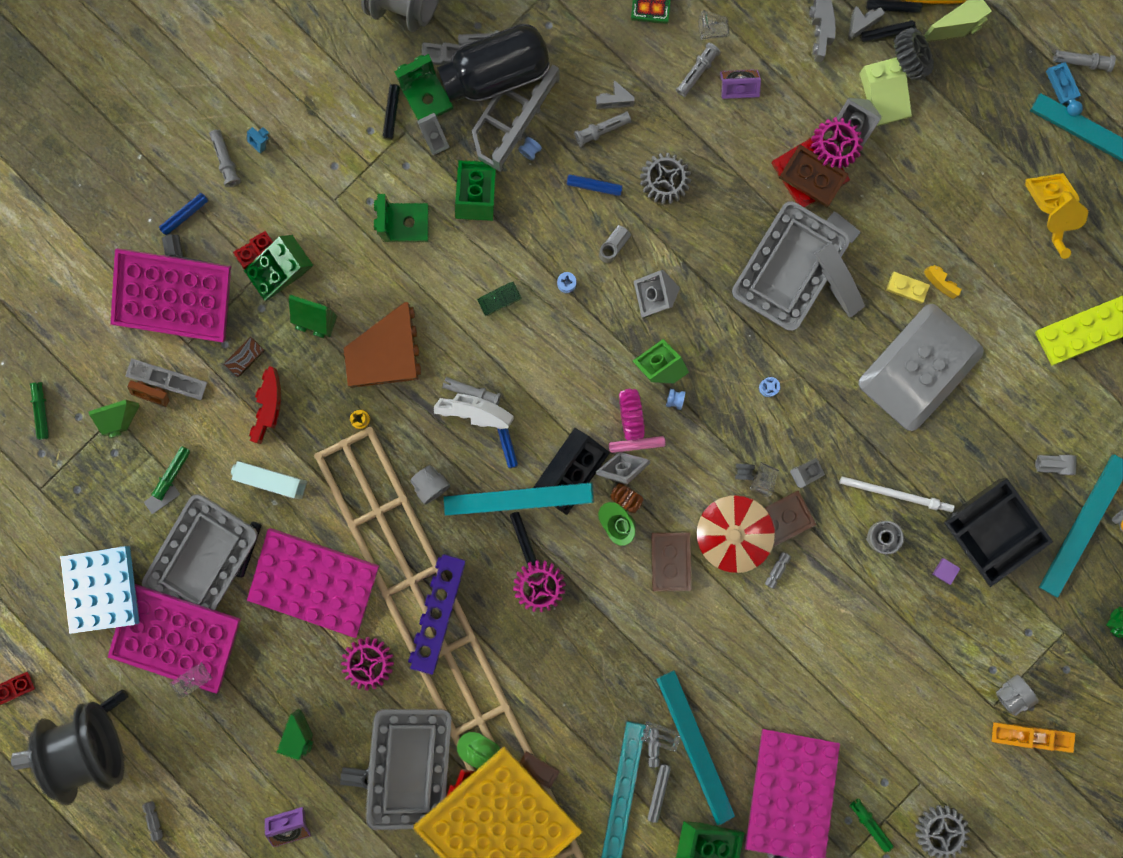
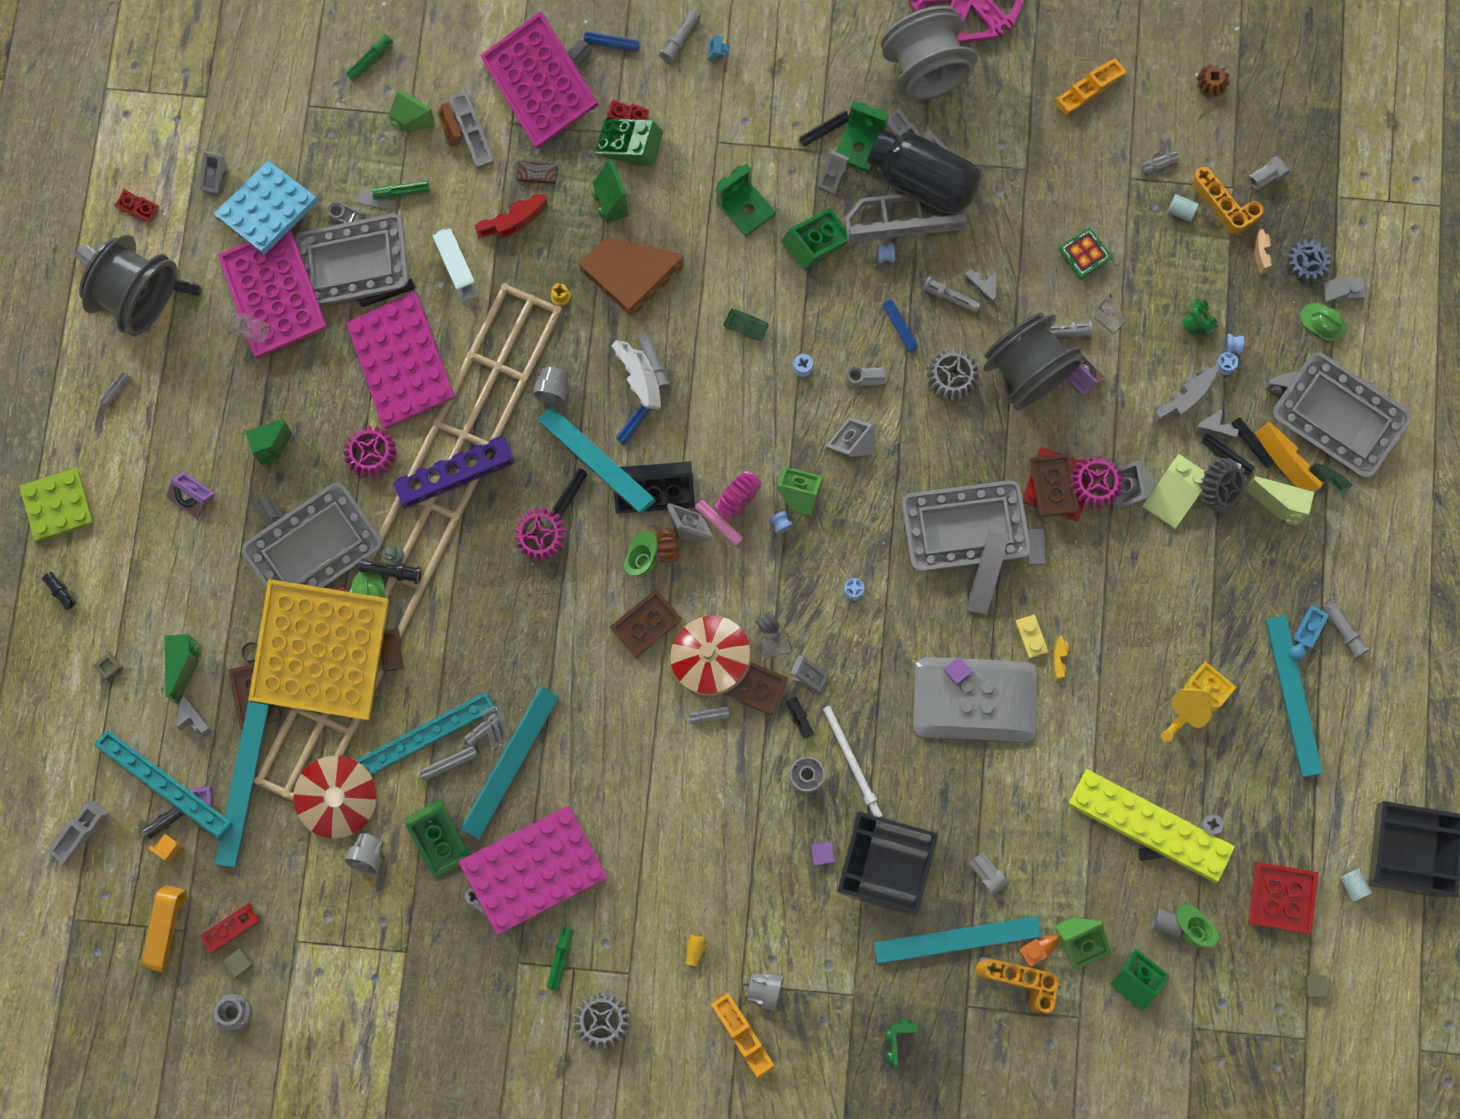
camera: 50 degrees right, 10 degrees down
(34, 609) = (212, 170): none -> light grey slope
(159, 530) = (348, 214): none -> light grey piece
(467, 708) = (394, 554): none -> sand green plate
(483, 716) = (400, 572): none -> black pin
(712, 110) = (1032, 359): none -> dark grey wheel
(833, 506) = (799, 717): none -> black pin
(895, 362) = (957, 671): none -> medium lavender tile
(942, 720) = (695, 949): none -> yellow cone

